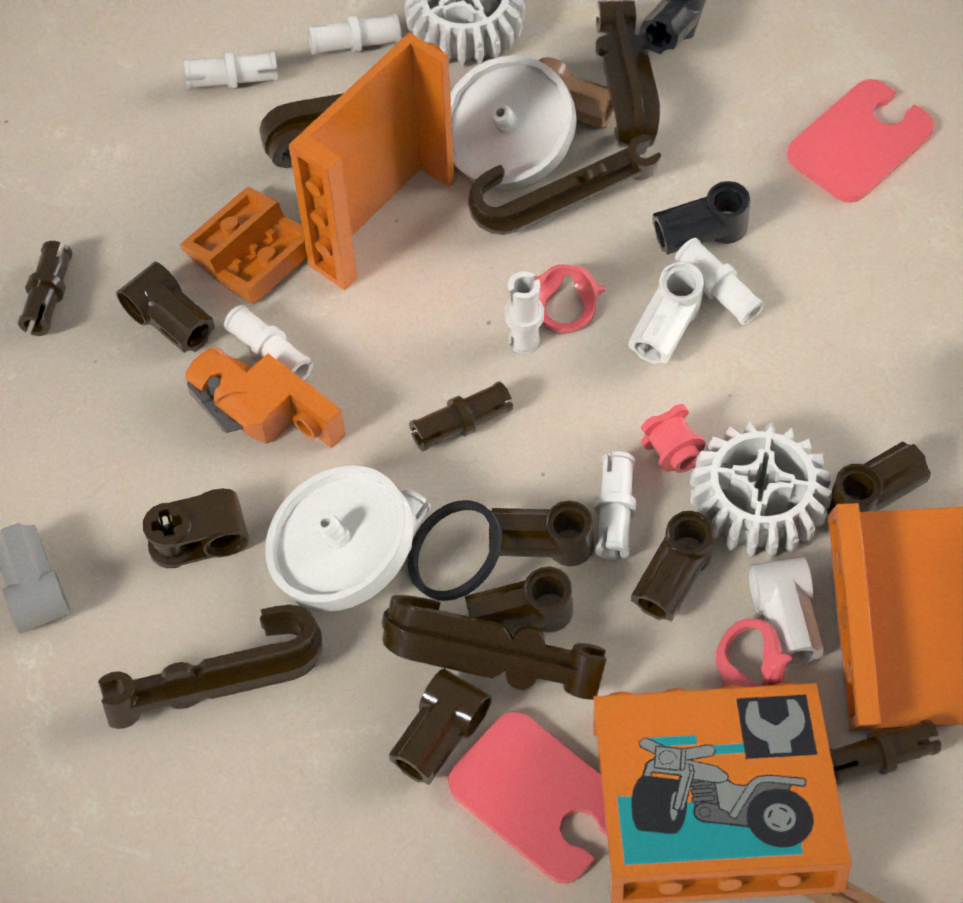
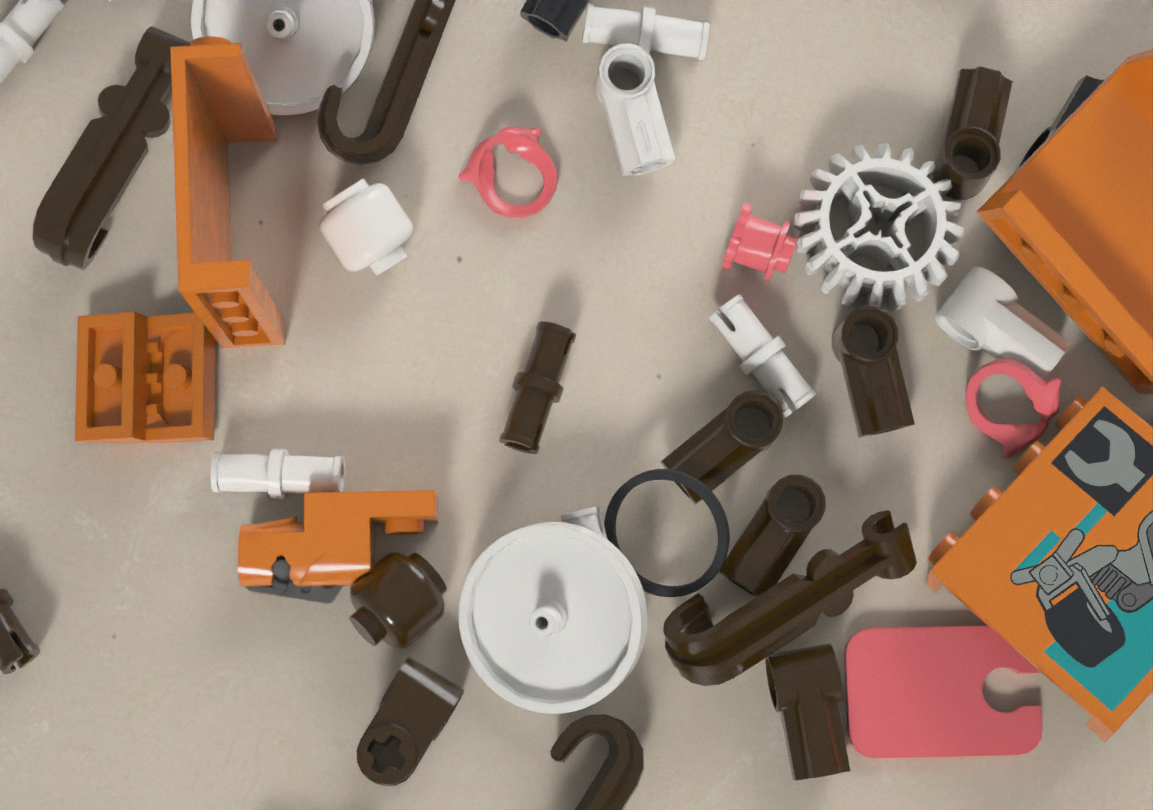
camera: 50 degrees left, 20 degrees up
(158, 299) = (118, 523): dark brown piece -> none
(262, 458) = (397, 600): none -> dark brown head
(448, 256) = (366, 227): none -> white head
(524, 312) = (510, 233): white pin -> none

